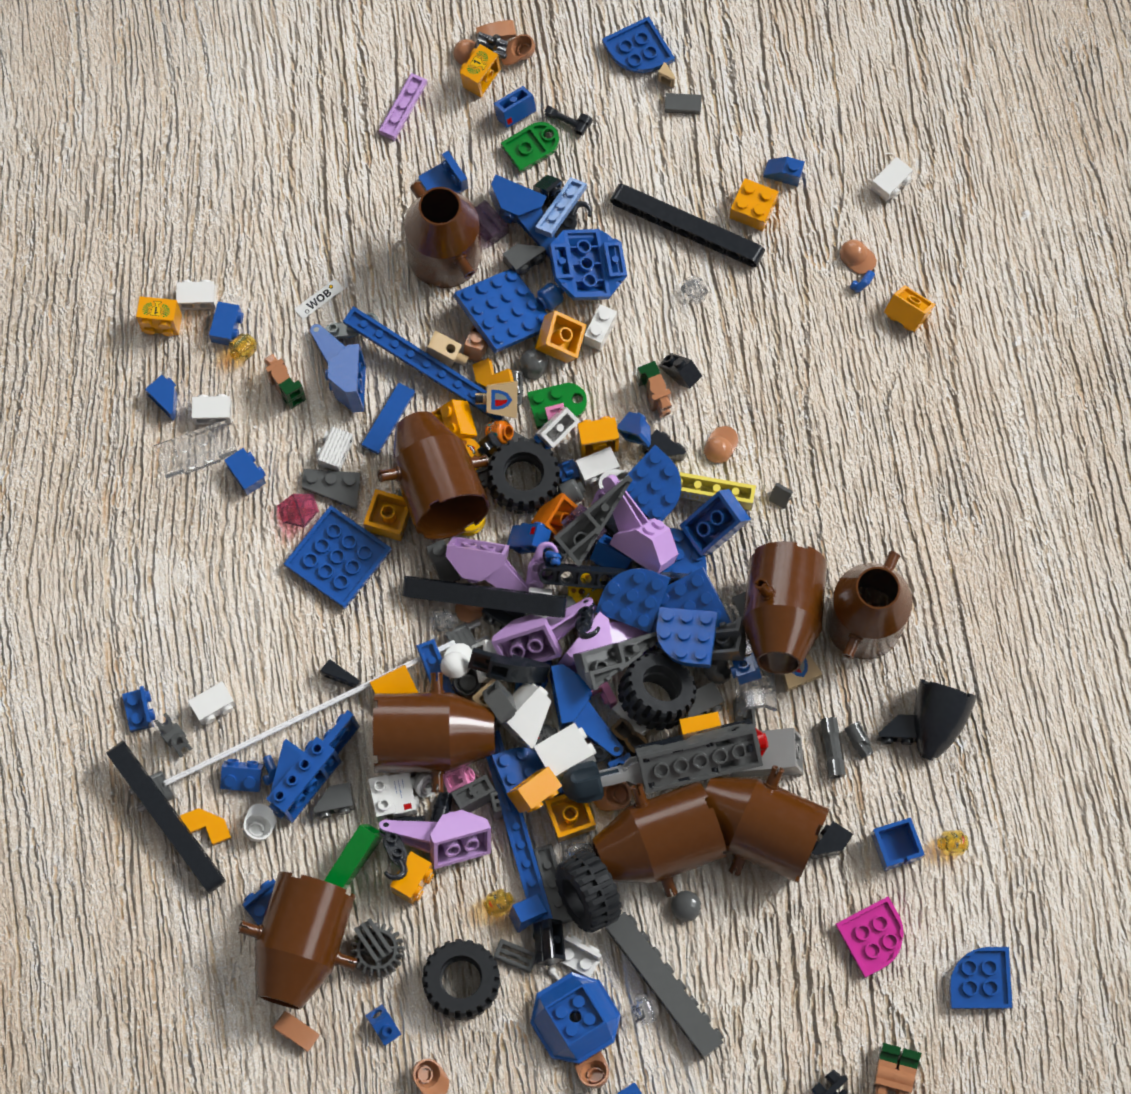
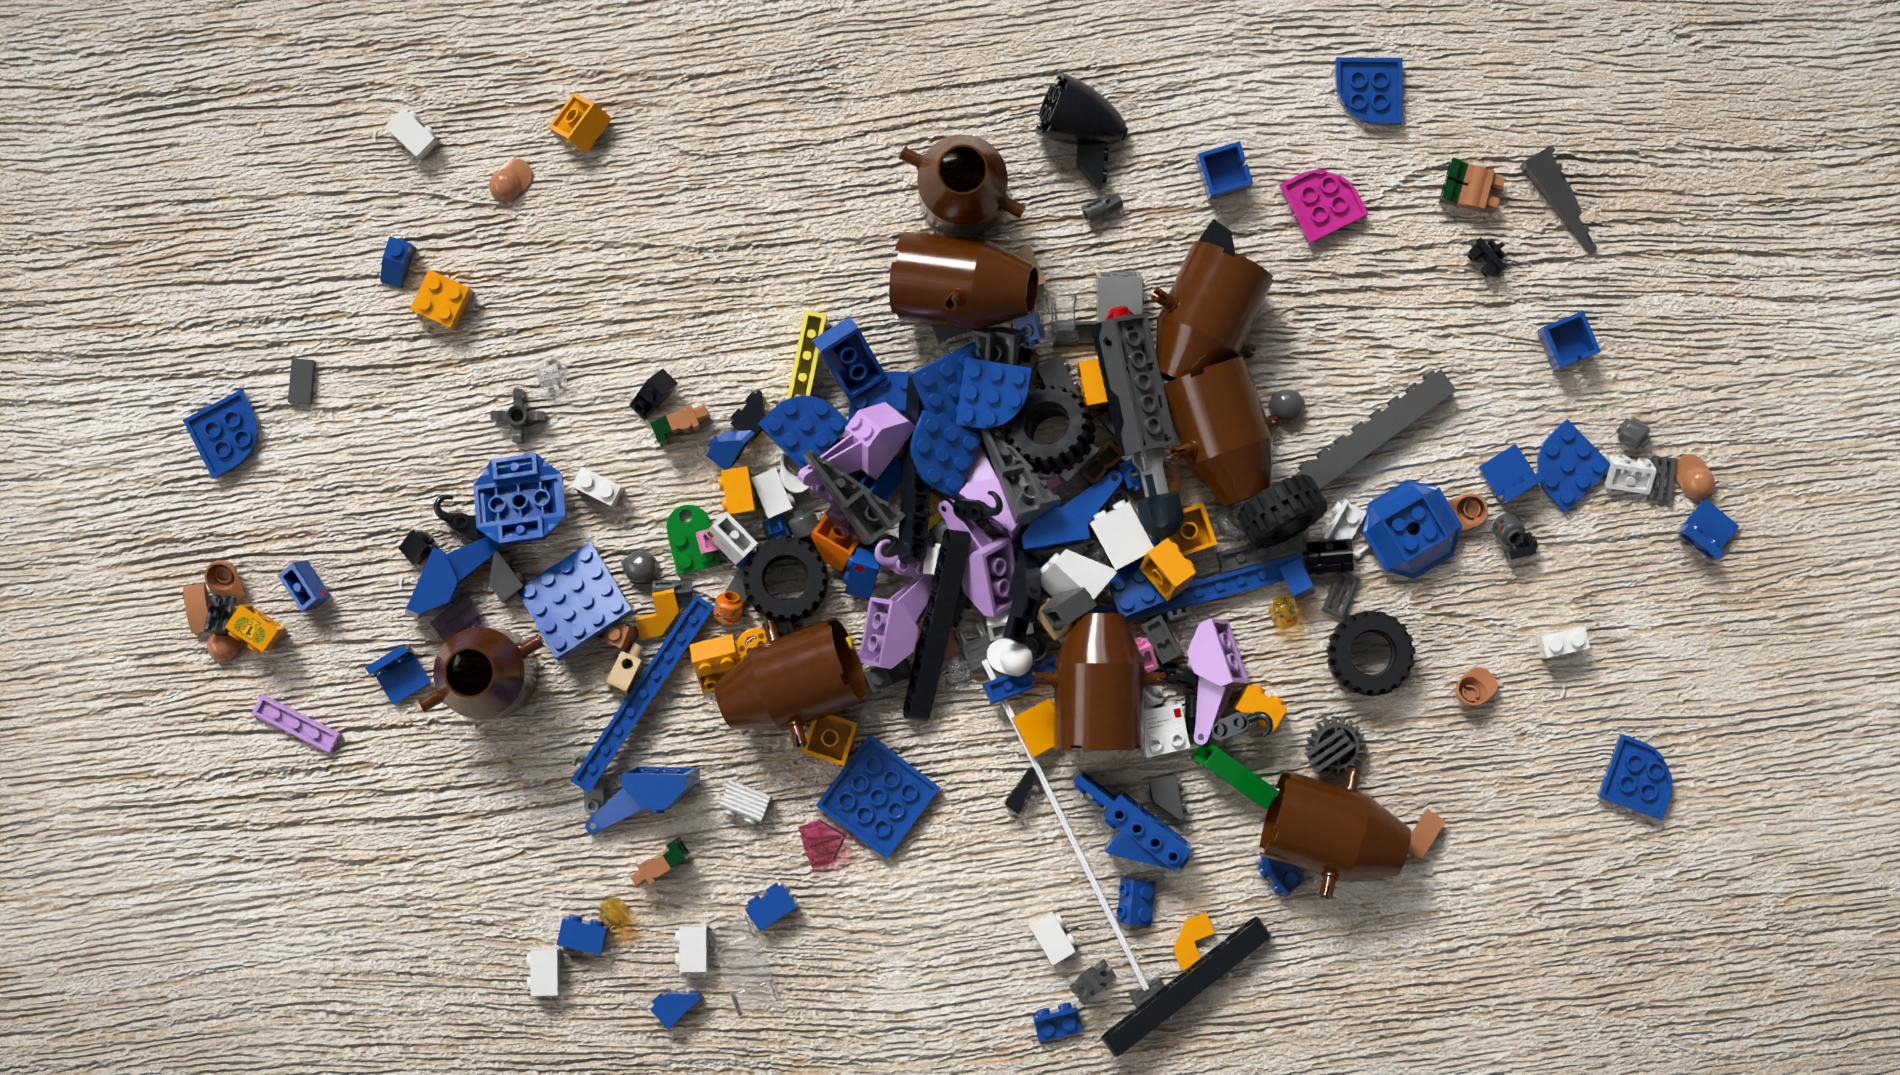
camera: 85 degrees left, 15 degrees up
(159, 316) = (574, 1015): light orange brick -> none
(259, 822) = (1192, 881): white cap -> none
(271, 769) = (1128, 868): blue arm -> none
(318, 299) = (550, 823): white sticker -> none
(335, 485) = (789, 800): dark grey wing -> none
(383, 1025) = (1418, 738): blue bracket -> none
(388, 418) = (706, 738): blue tile -> none
(489, 445) = (746, 619): black tile -> none
(500, 399) = (691, 605): tan torso -> none
(530, 145) = (355, 568): green plate -> none
(550, 296) = (557, 546): blue head -> none
(553, 557) = (895, 543): blue arm -> none
(560, 207) = (444, 530): medium blue plate -> none
(560, 336) = (611, 533): light orange brick -> none
(581, 124) = (327, 505): black brick -> none
(645, 1010) = (1402, 453): clear head -> none
(658, 258) = (518, 405): none -> dark grey pin
(666, 76) = (265, 400): tan slope -> none
(687, 225) = (466, 380): black beam -> none
(721, 444) = (745, 350): nougat cap -> none
(780, 495) = (811, 283): dark grey slope -> none
(830, 734) = (1111, 237): dark grey axle -> none
(865, 281) = (546, 174): blue arm -> none
(953, 843) = (1221, 110): clear yellow head -> none

